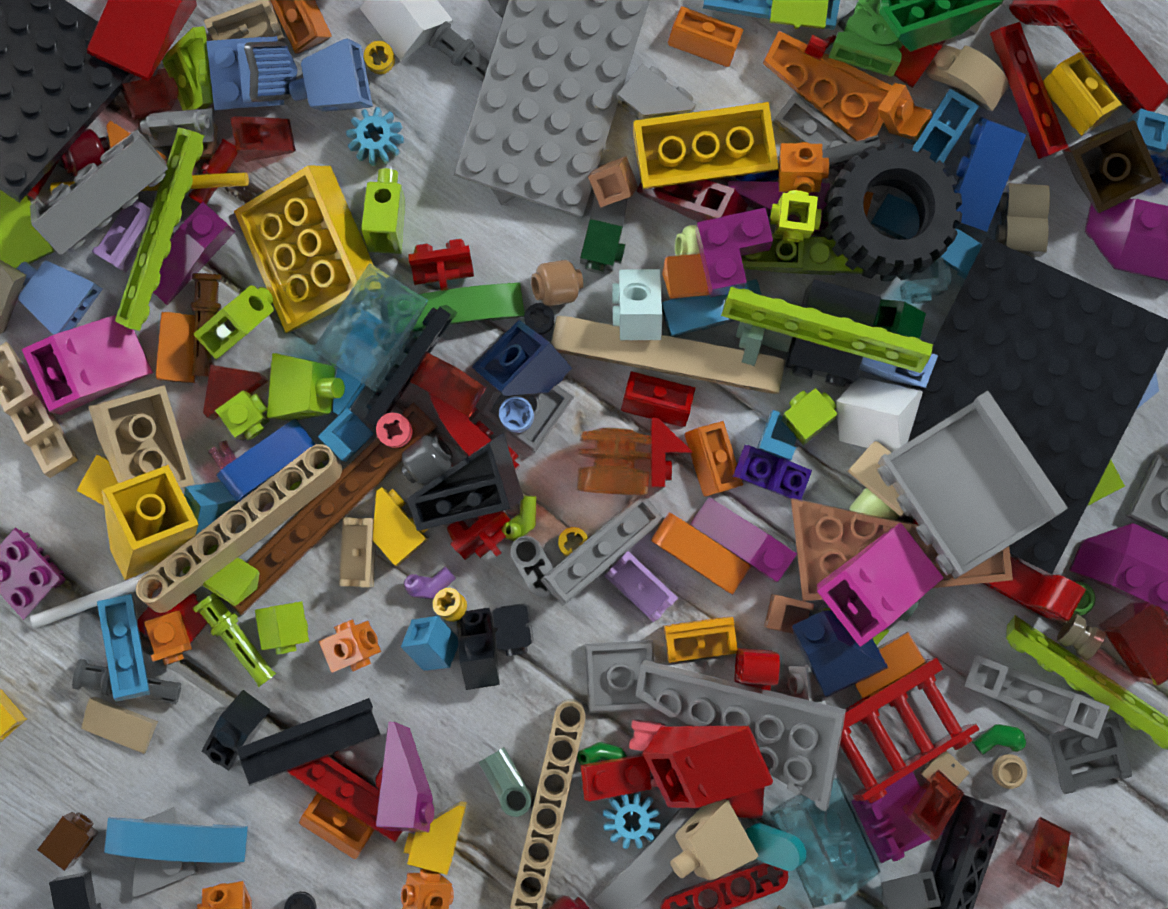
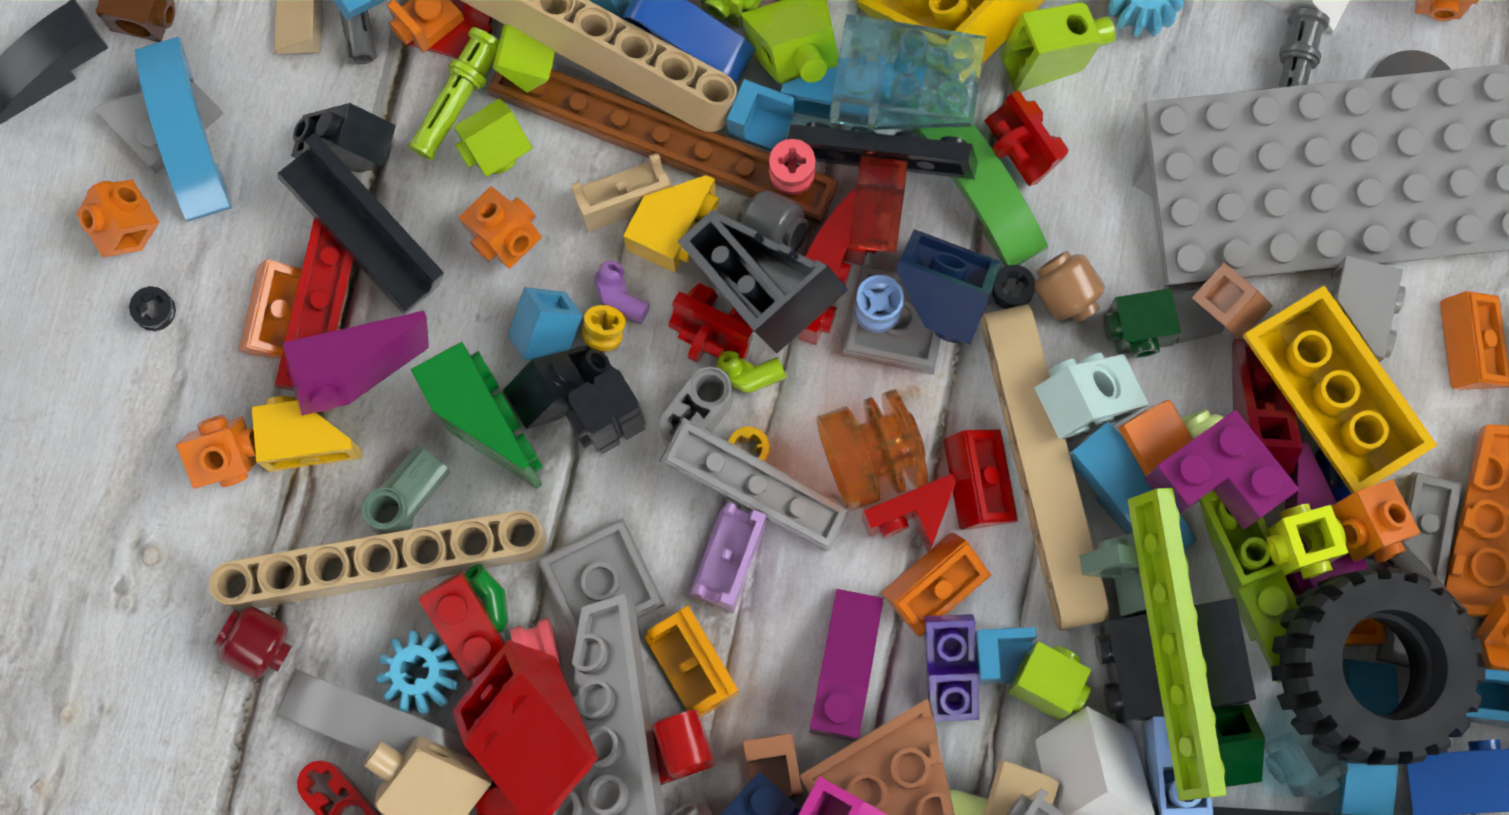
camera: 70 degrees right, 10 degrees down
(465, 719) = (462, 398): none -> green slope
(700, 553) = (804, 617): orange beam -> none

